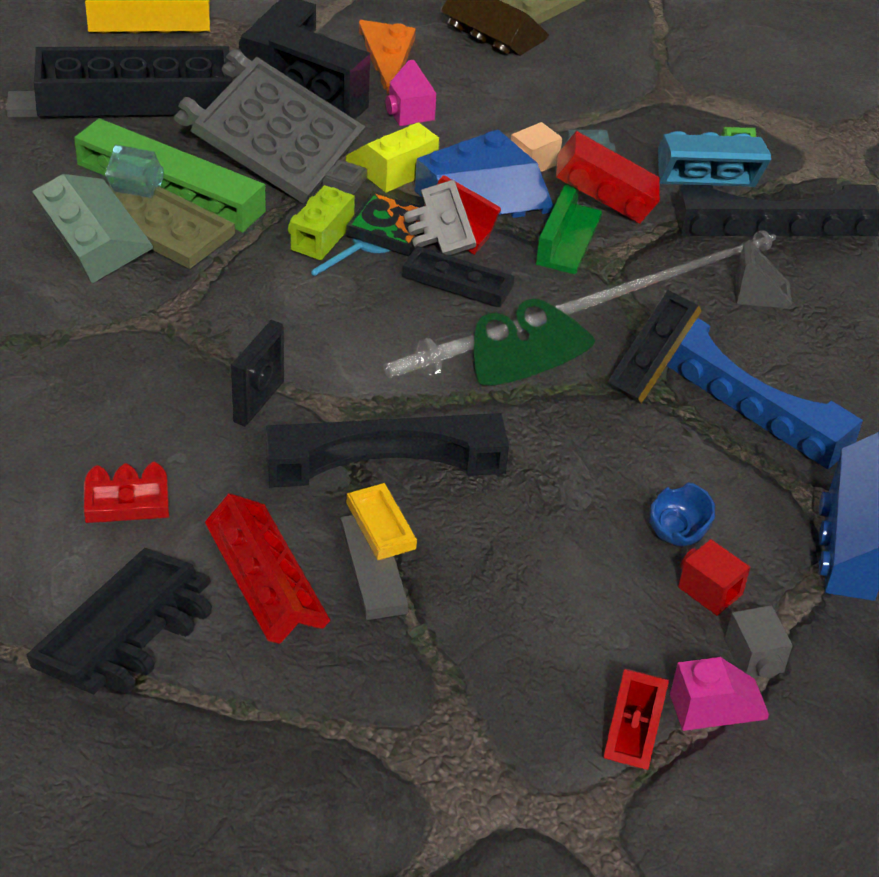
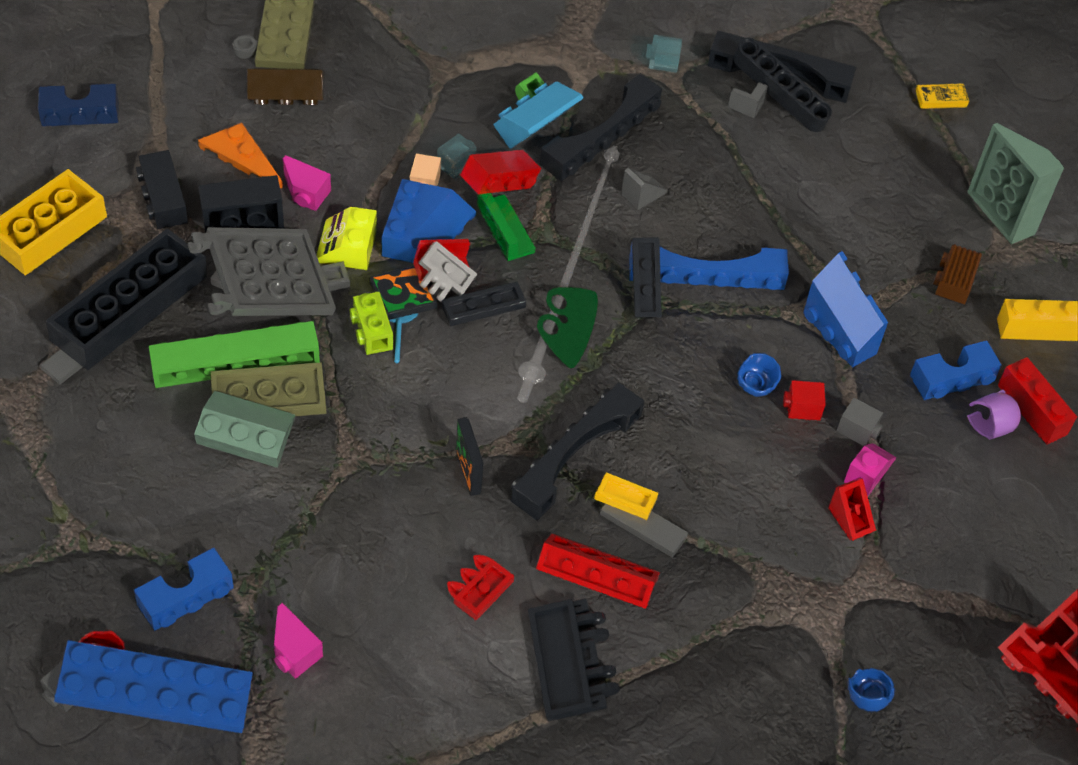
camera: 45 degrees left, 10 degrees up
(134, 171) = (232, 371): clear light blue brick -> none

